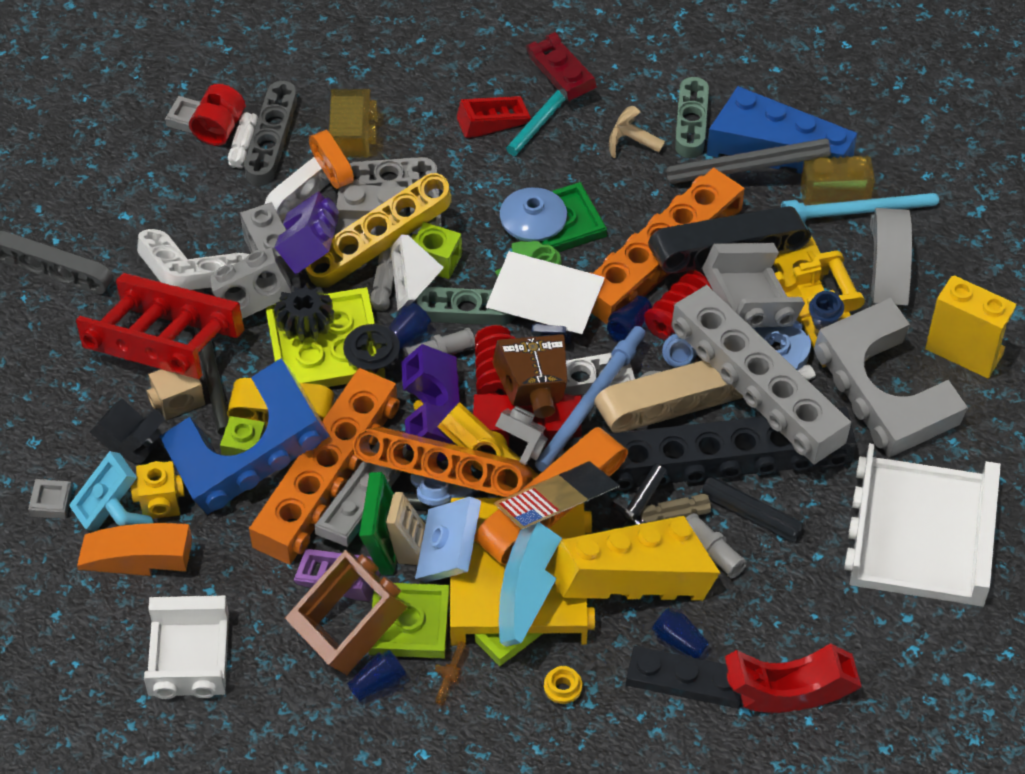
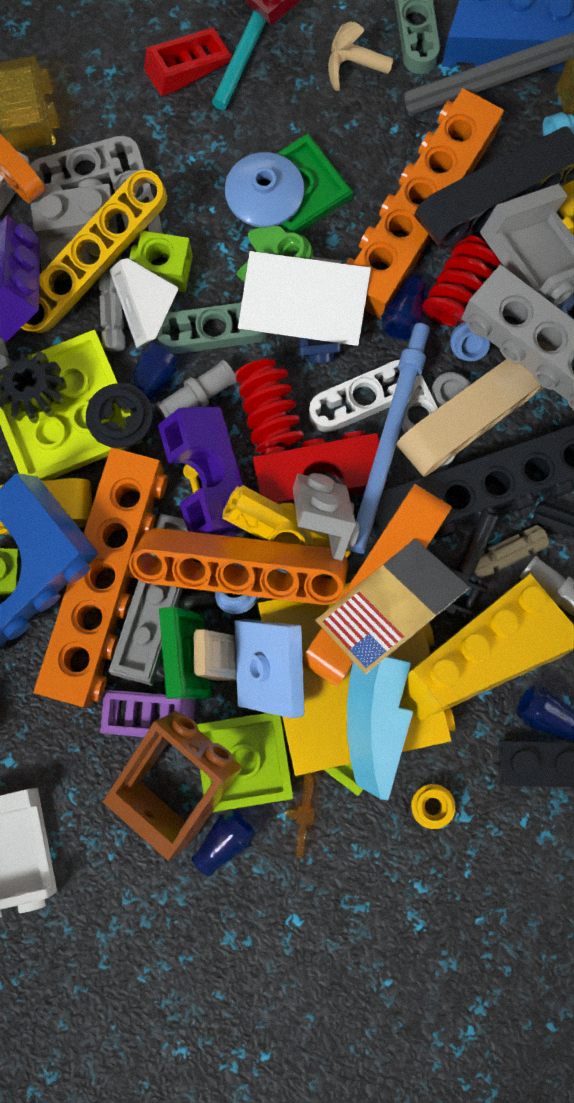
camera: 10 degrees left, 25 degrees up
(533, 371) = (320, 422): reddish brown torso -> none

